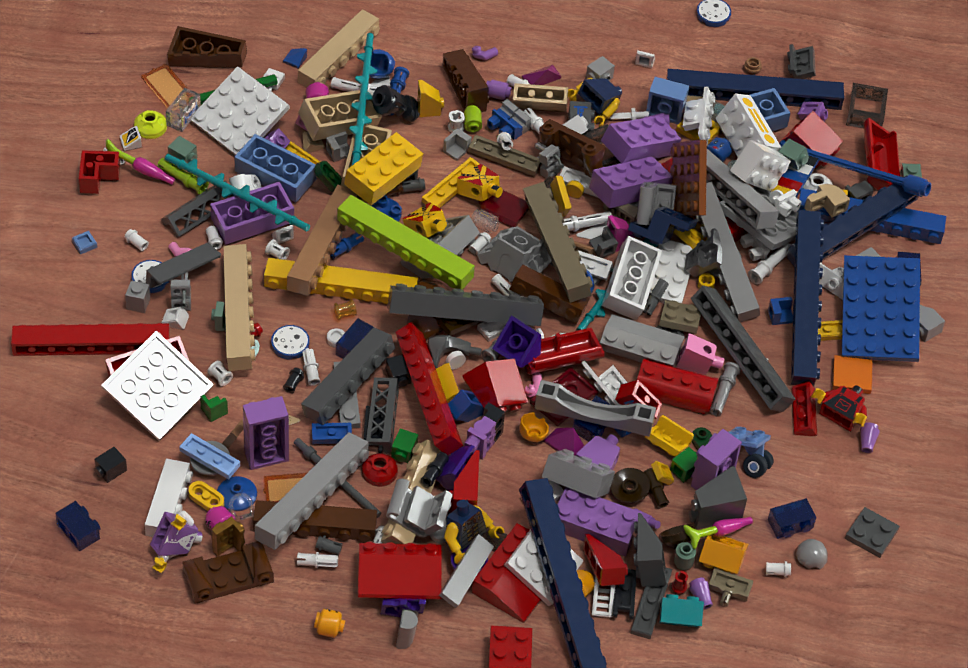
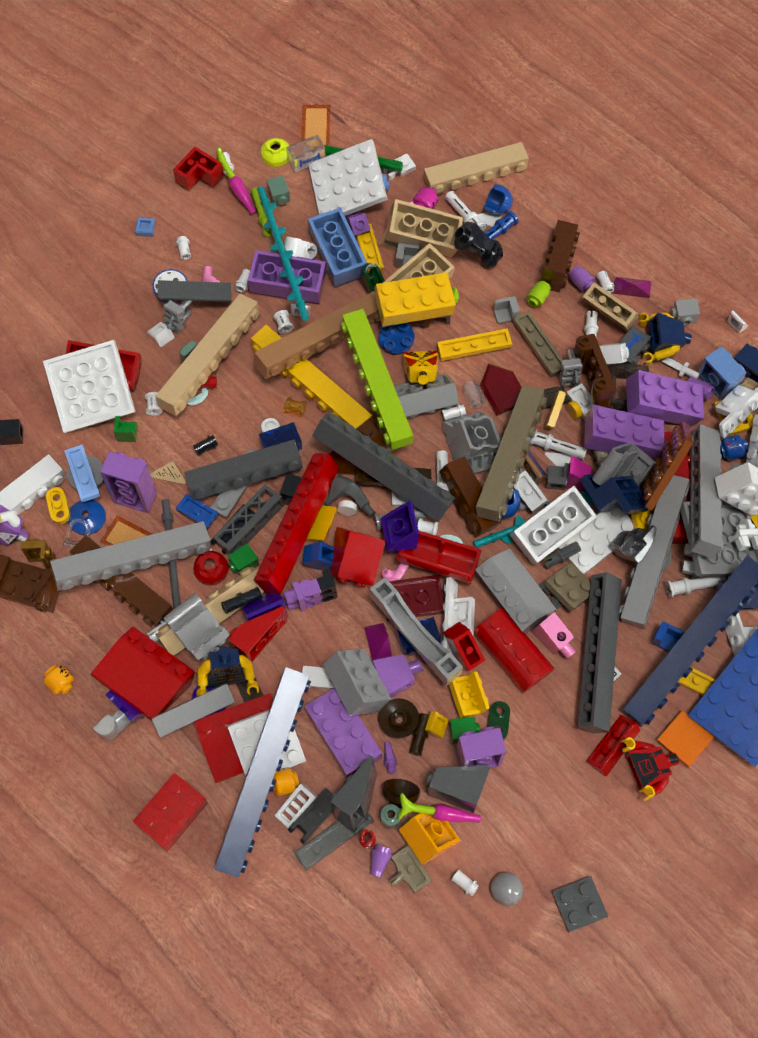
camera: 40 degrees right, 15 degrees up
(82, 338) = (78, 312): red brick -> none
(131, 139) = (250, 157): slope -> none
(137, 296) = (143, 298): light grey brick -> none
(191, 205) = (245, 242): dark grey fence -> none
(205, 49) = (364, 108): reddish brown wedge -> none
(217, 515) = (51, 532): dark pink head -> none
(289, 341) = (231, 409): white tile -> none
(296, 57) = (437, 156): blue slope -> none
(311, 367) = (228, 442): white axle -> none
(317, 560) = (96, 617): white axle -> none
(328, 545) = (115, 610): dark grey pin -> none
(347, 244) = (339, 348): blue pin -> none
(364, 96) = (455, 223): teal plant -> none
(413, 185) = (442, 327): dark grey pin -> none
(429, 100) = (512, 256): yellow slope -> none
(454, 121) = (521, 288): white bush -> none
(479, 183) = (493, 358): yellow torso -> none
(484, 55) = (597, 239): medium lavender arm -> none
(507, 140) = (548, 329): white pin -> none
(509, 120) = (570, 313): hips -> none
(533, 428) = (360, 611): light orange hair -> none
(604, 562) = (315, 779): red slope -> none
(681, 611) = (345, 867): teal brick -> none
(706, 278) = (626, 563): yellow bush -> none
(726, 382) = (562, 675): light grey pin -> none
(759, 459) = (534, 746): plate -> none
(791, 518) = (514, 844): clear blue brick -> none
(869, 435) = (649, 810): medium lavender cone -> none

